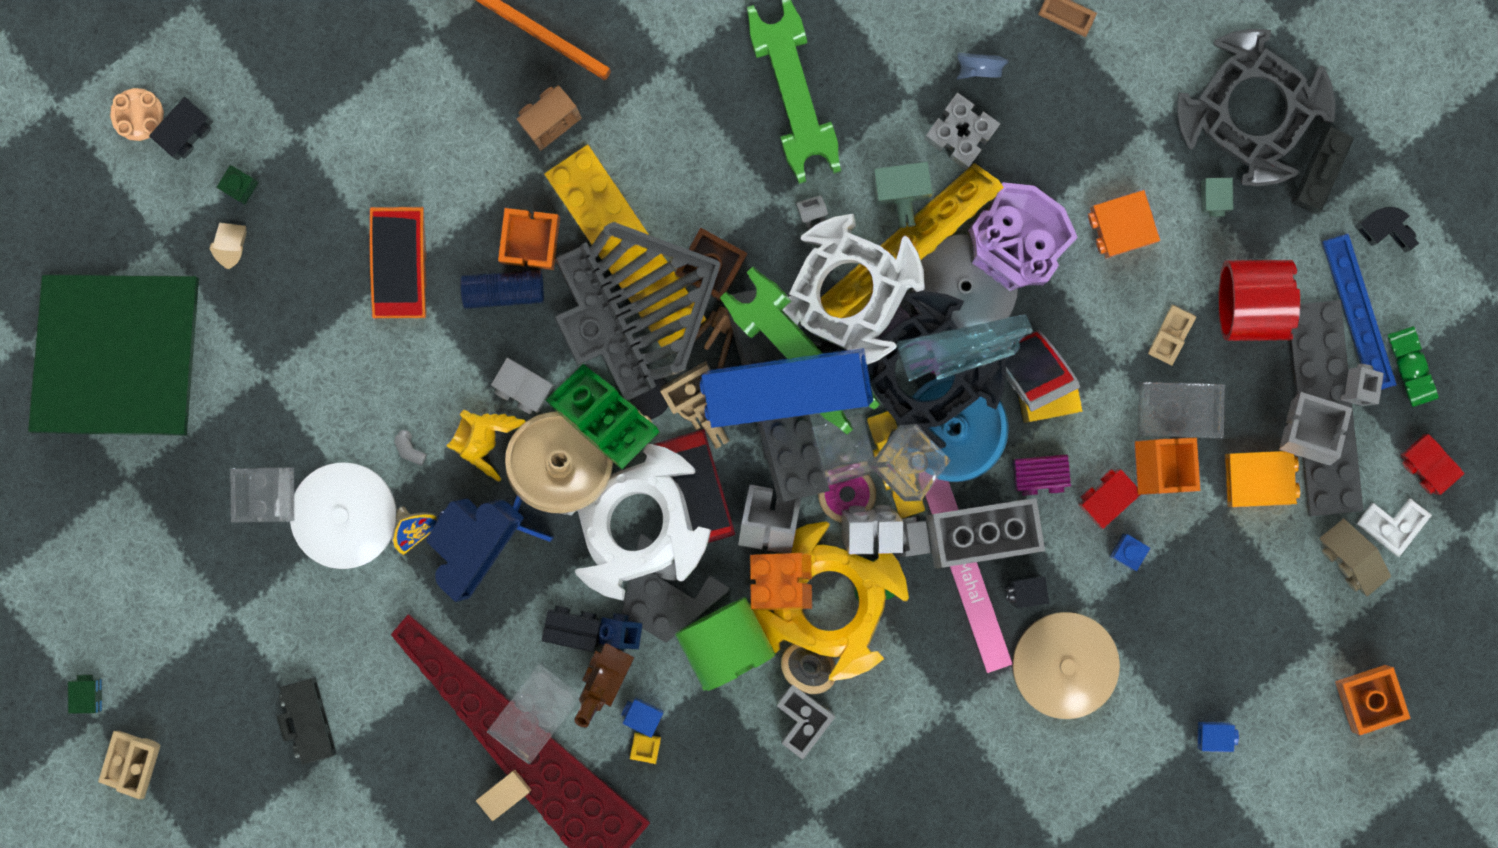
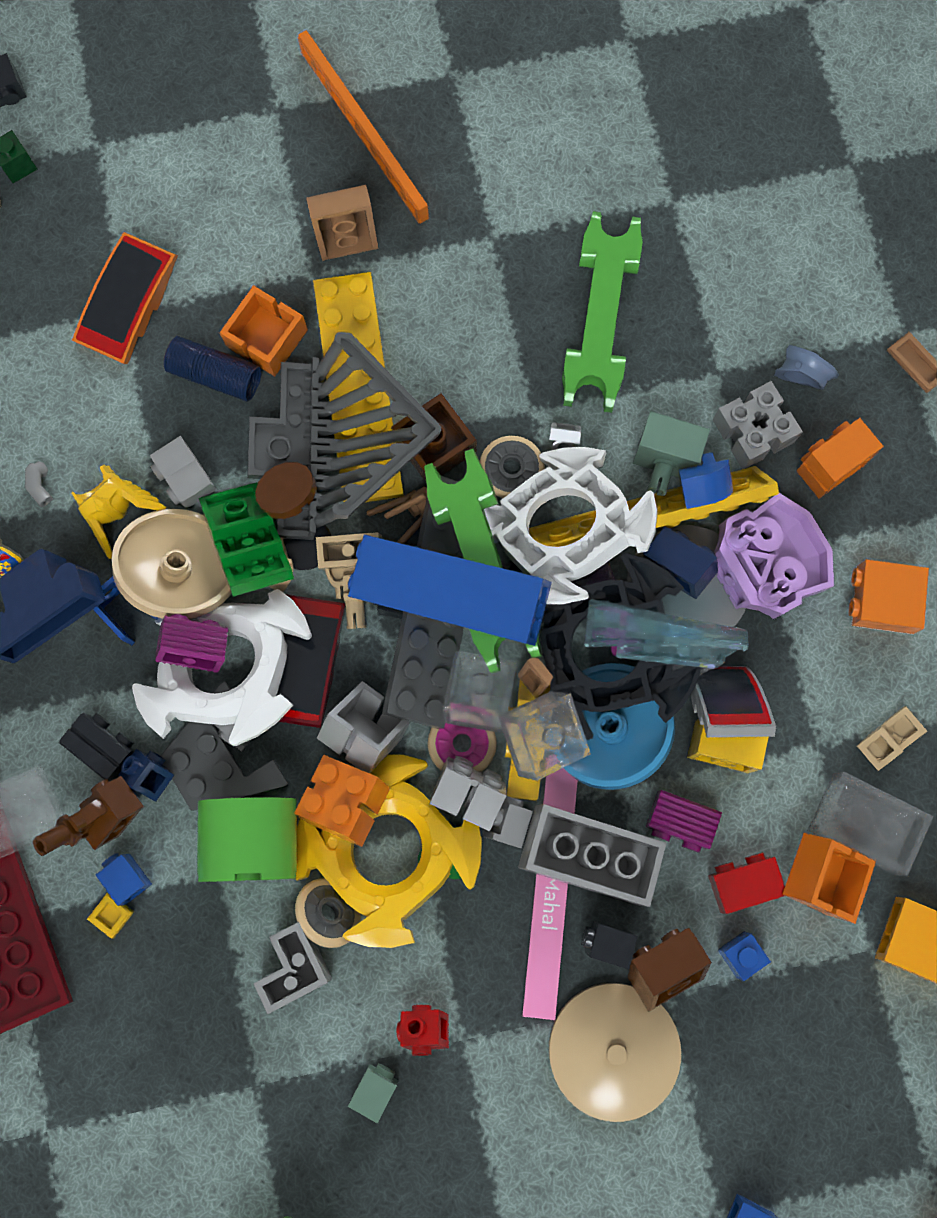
camera: 30 degrees right, 10 degrees down
(607, 519) = (191, 643): none -> magenta brick
(617, 364) = (285, 490): none -> reddish brown tile
(777, 239) = (508, 449): none -> dark grey wheel
(882, 420) = (535, 676): none -> medium nougat tile
(905, 777) = (374, 1092): none -> sand green brick
(920, 717) = (423, 1030): none -> red brick
(944, 205) = (706, 482): none -> blue brick
(953, 276) = (684, 560): none -> dark blue brick
(1038, 132) = (838, 457): none -> orange piece
(1077, 588) = (668, 967): none -> reddish brown brick

